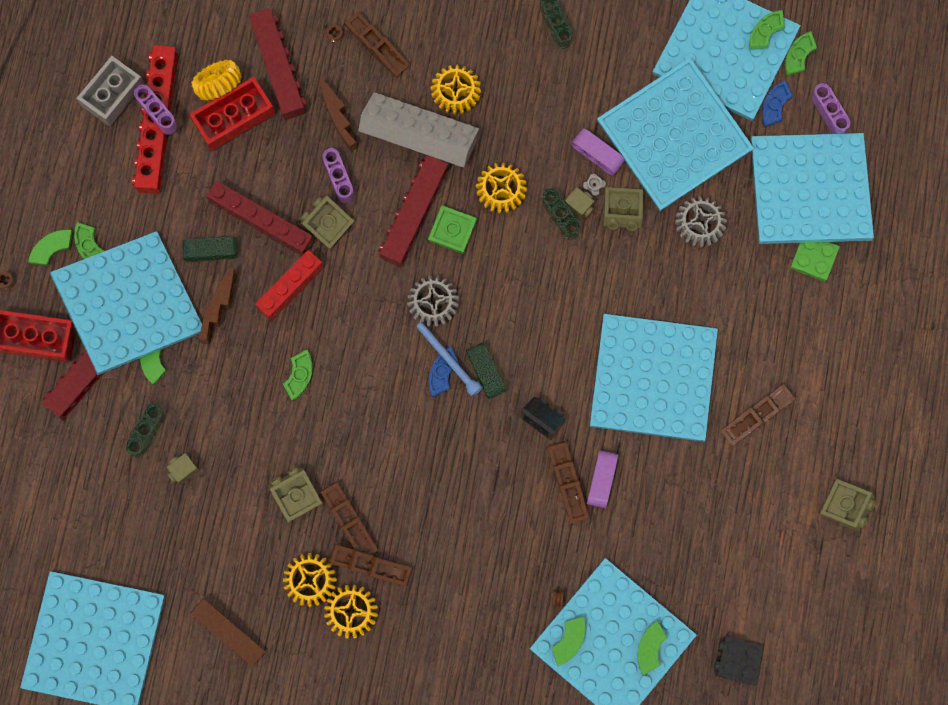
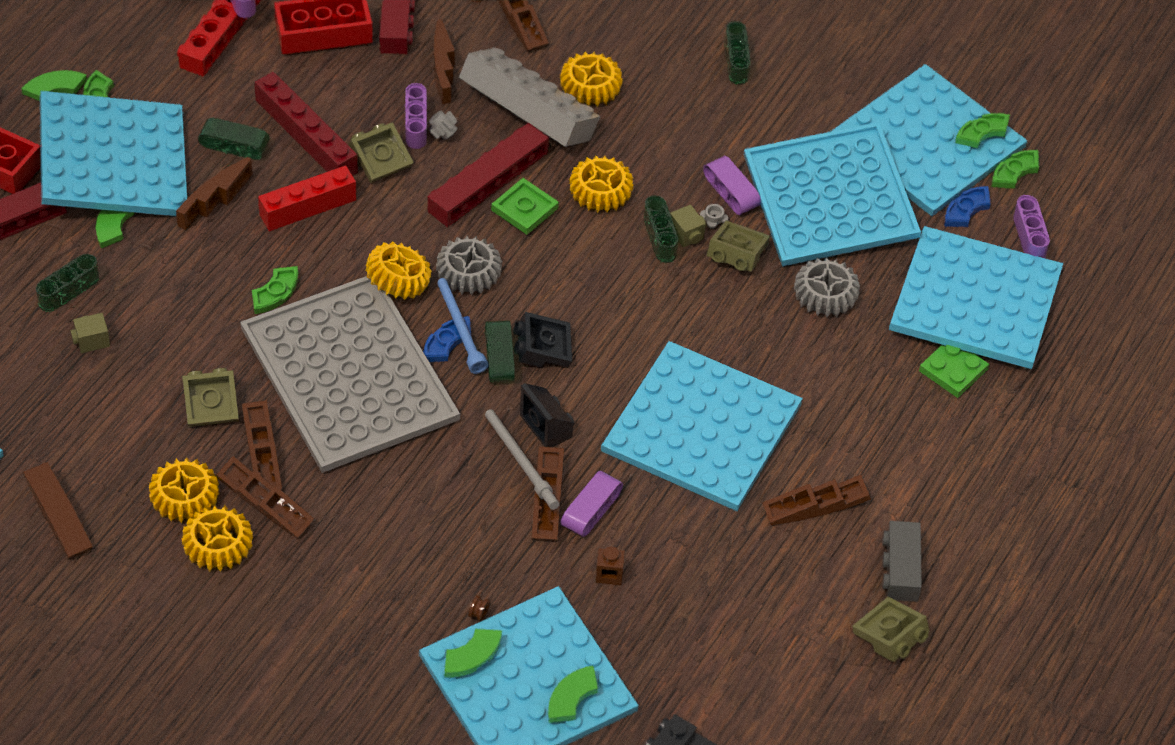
camera: 15 degrees right, 25 degrees down
(362, 177) = (443, 124): none -> light grey gear
(384, 429) = (349, 372): none -> light grey plate
(385, 319) = (398, 270): none -> yellow gear
(514, 350) = (542, 340): none -> black plate
(565, 486) = (541, 487): none -> light grey bar
(635, 528) = (610, 559): none -> reddish brown brick
(836, 444) = (902, 560): none -> dark grey brick

